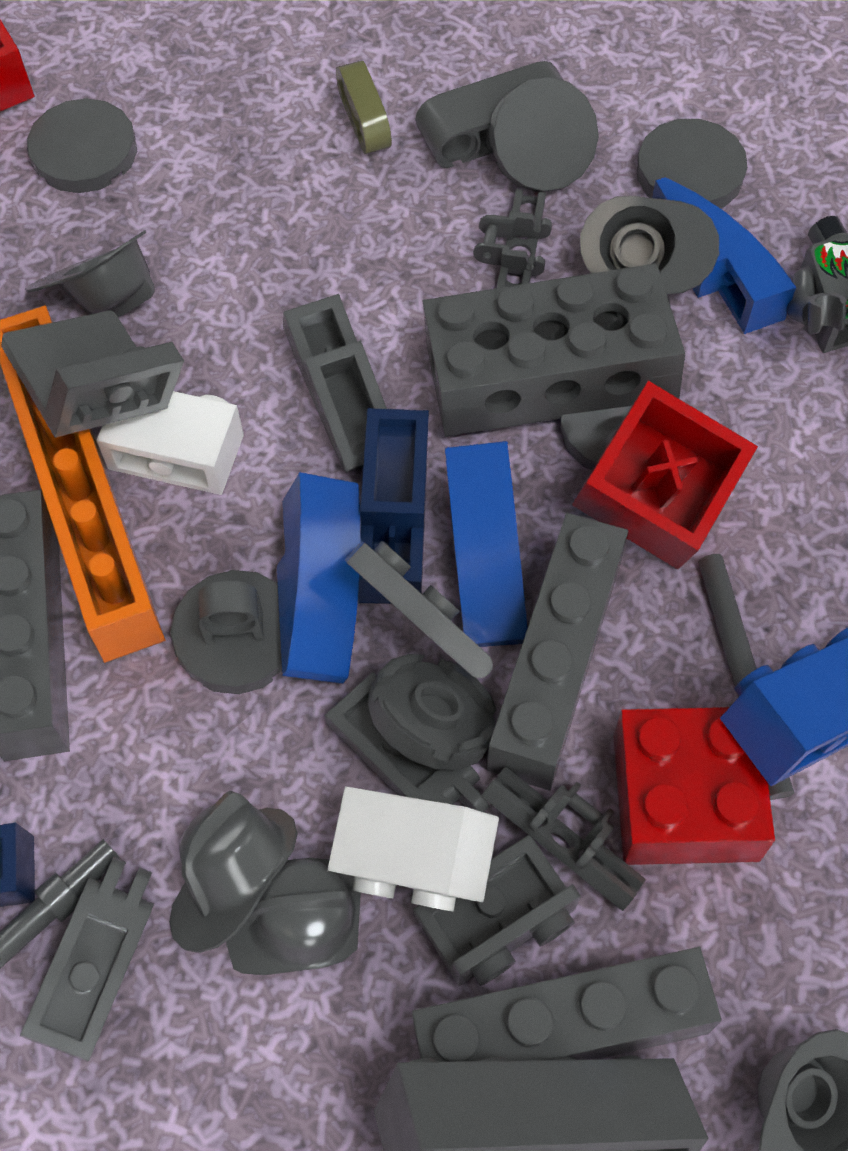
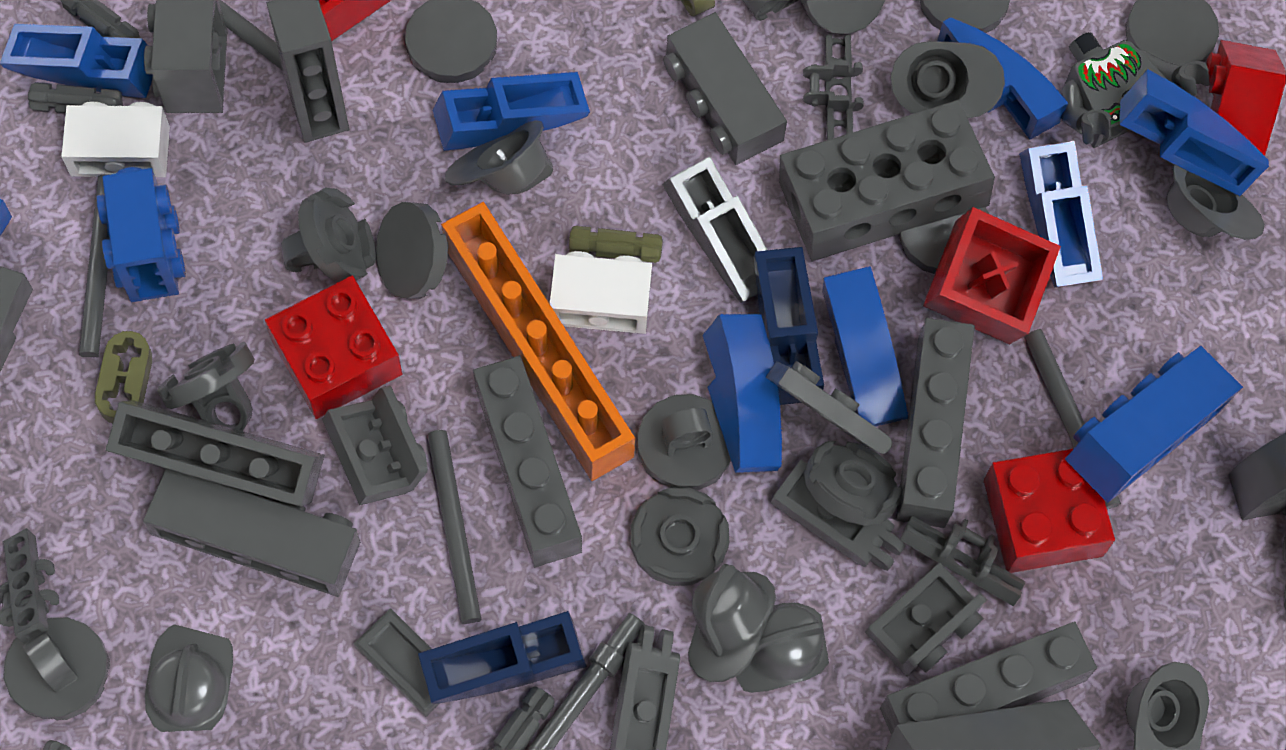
camera: 15 degrees left, 5 degrees up
(87, 224) = (483, 114): none -> blue slope
(91, 371) = (539, 255): dark grey bracket -> none
(205, 763) = (686, 550): none -> dark grey tile
(247, 393) = (616, 243): none -> olive axle
(379, 230) = (724, 89): none -> dark grey brick
(413, 844) = (862, 582): white brick -> none
(773, 415) = (1062, 211): none -> slope

